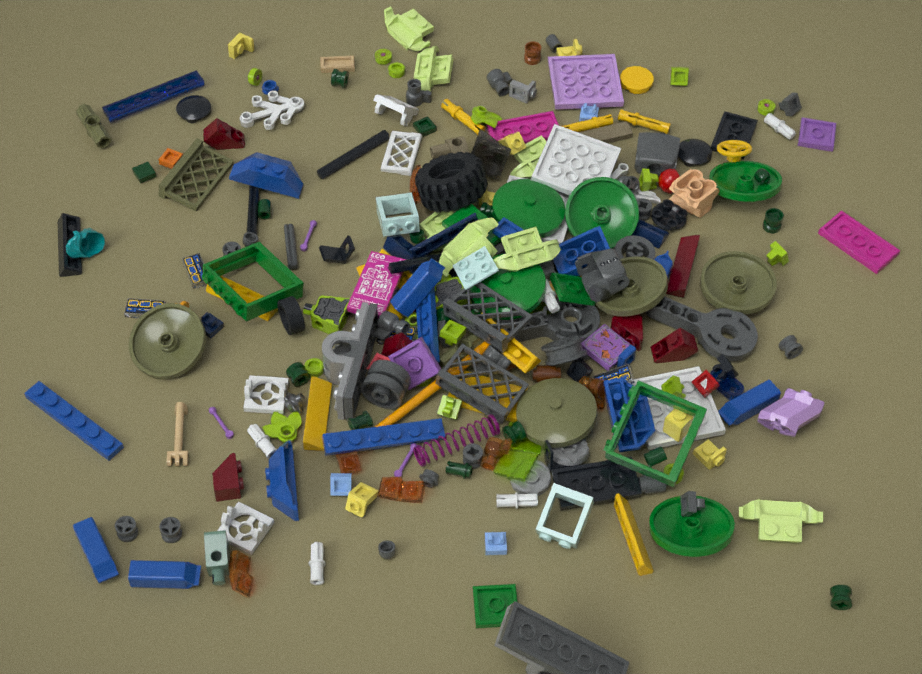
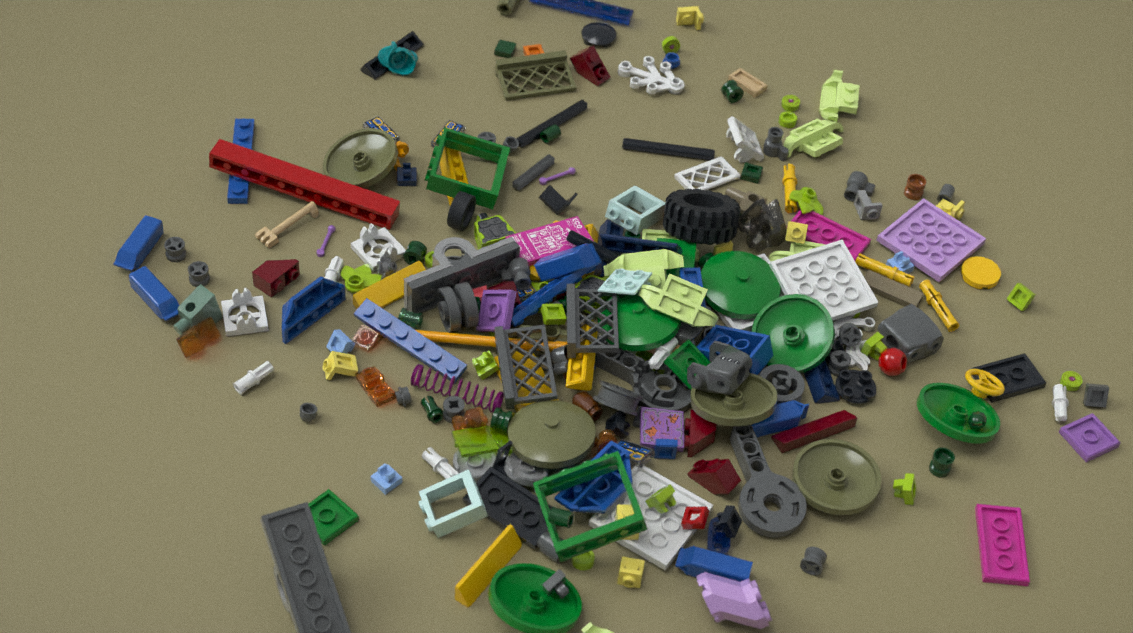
camera: 45 degrees right, 5 degrees down
(152, 395) = (304, 184): none -> red brick
(268, 173) = (584, 113): blue wedge -> none
(398, 473) = (390, 375): medium lavender hinge -> none
(694, 152) = (951, 361): black dish -> none
(694, 192) = (896, 383): light nougat piece -> none

